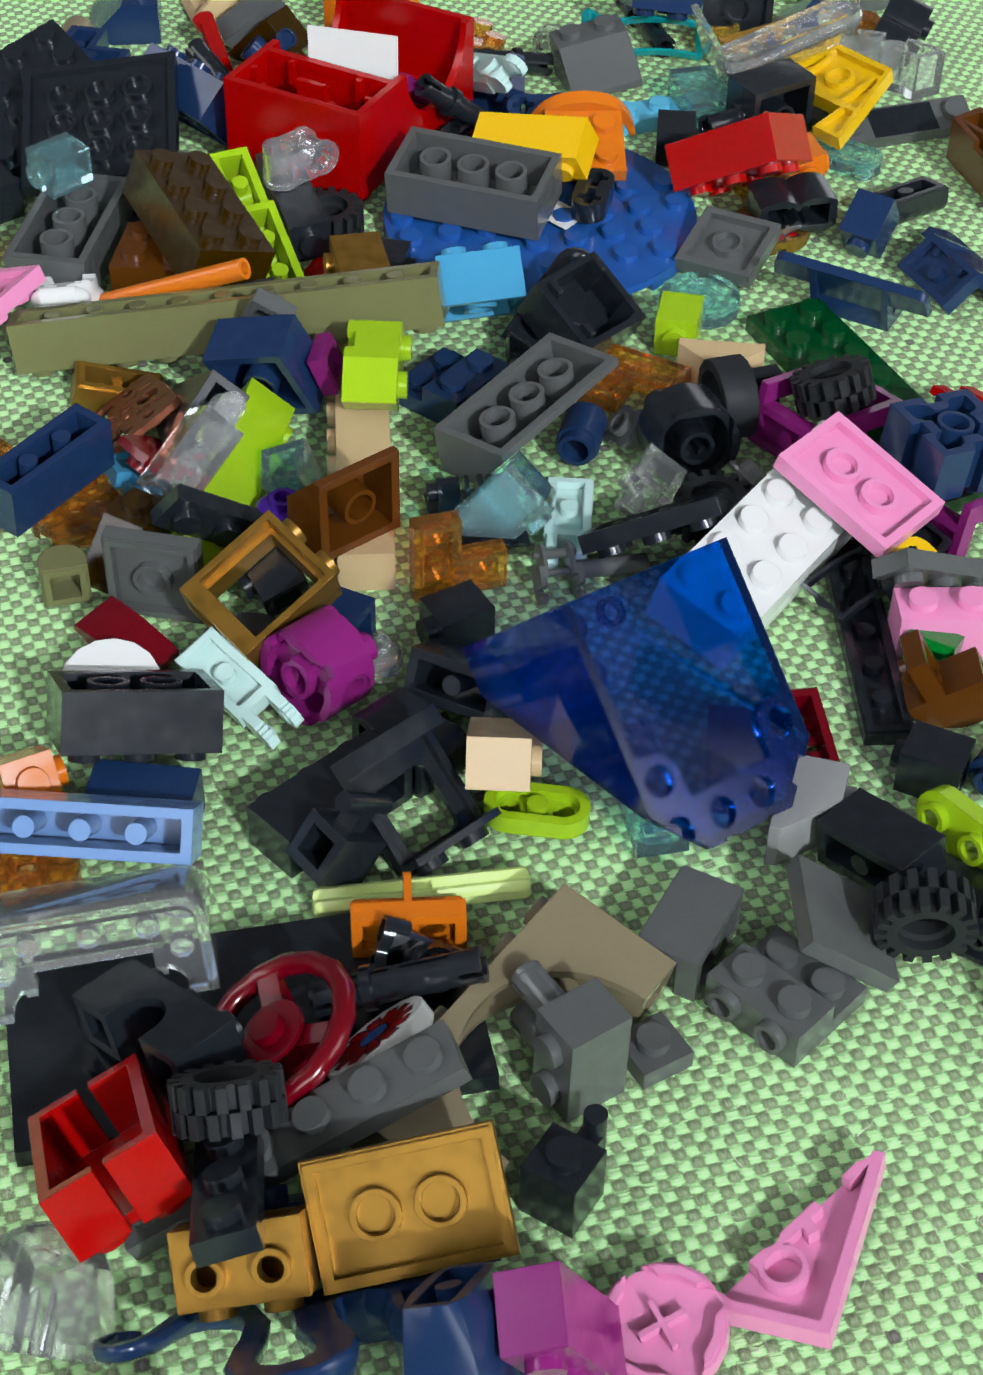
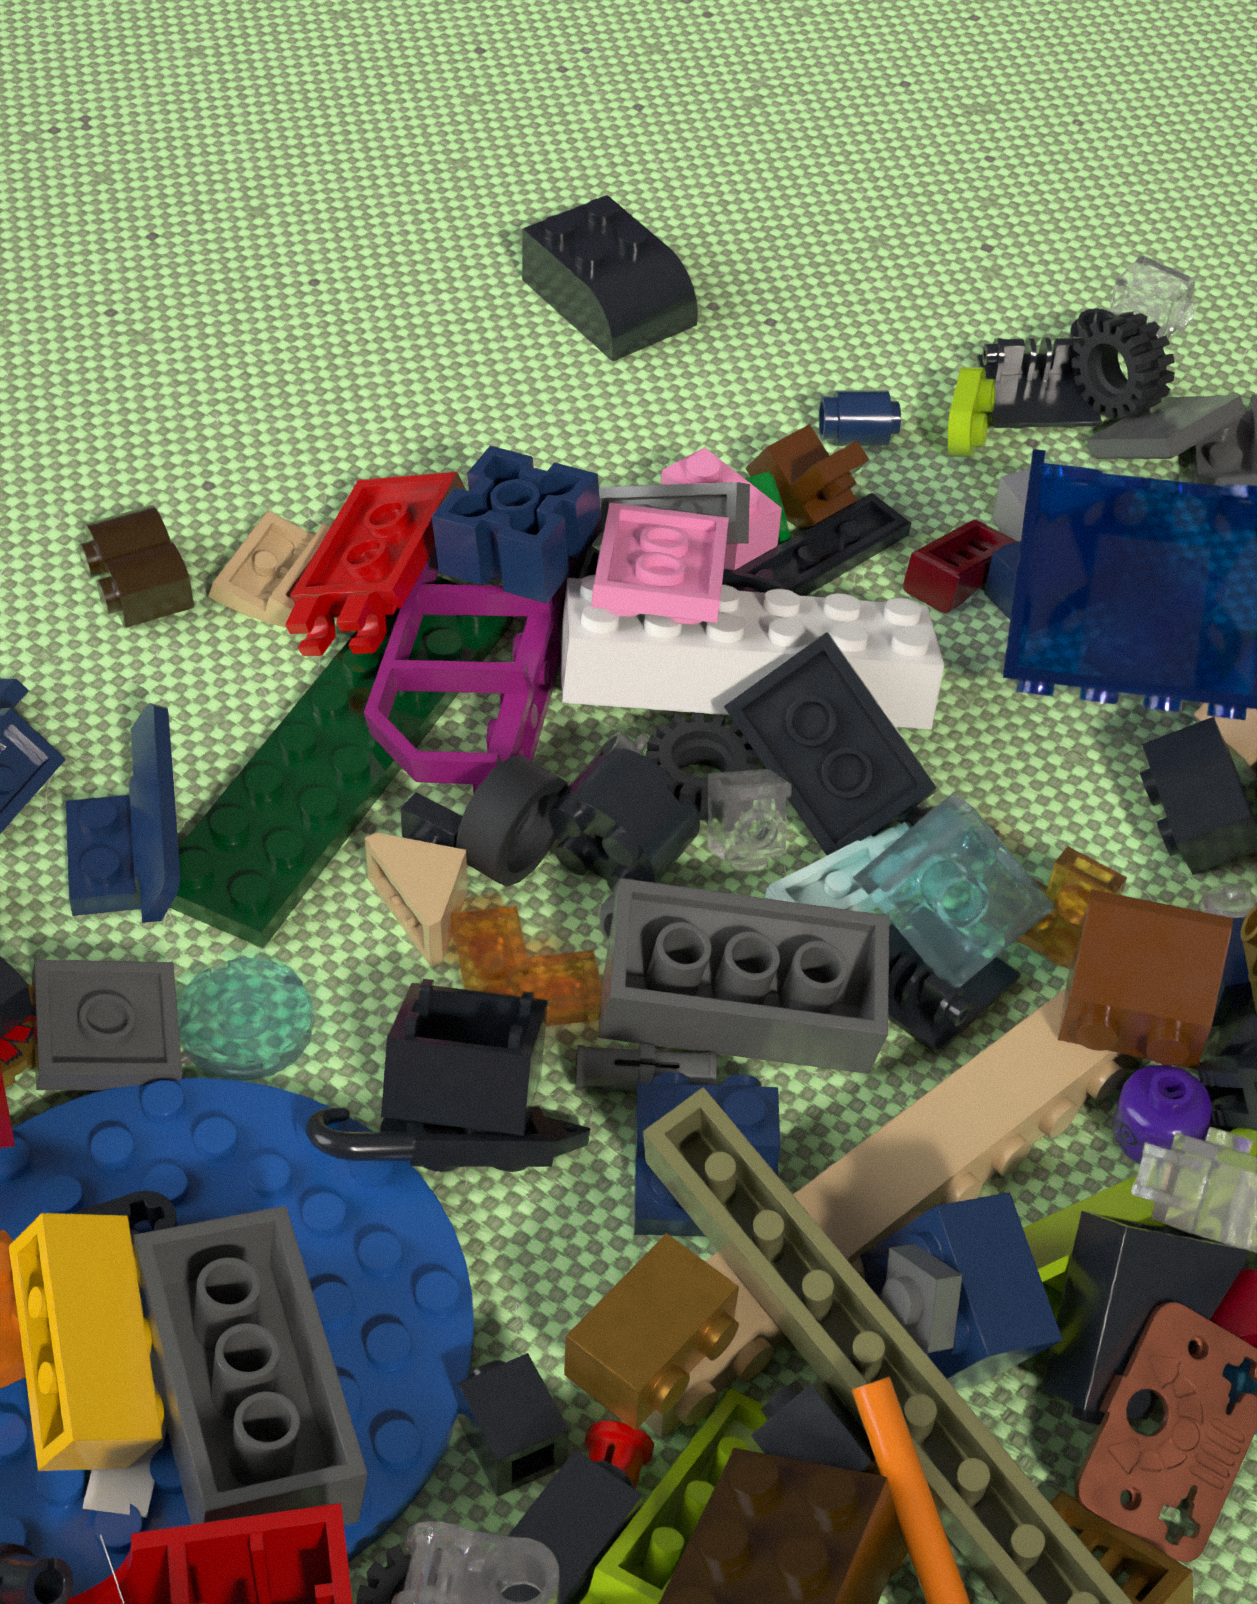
camera: 130 degrees left, 5 degrees up
(290, 466) = (1089, 1151): clear light blue brick -> none
(326, 363) = (888, 1218): magenta tile -> none
(374, 365) = (857, 1136): lime brick -> none
(457, 614) = (1132, 855): black brick -> none
(482, 281) = (518, 1202): dark azure brick -> none
(676, 318) = (355, 982): lime brick -> none
(833, 386) = (442, 661): black tyre -> none
(874, 839) = (1055, 419): black brick -> none
(931, 759) = (910, 456): black brick -> none

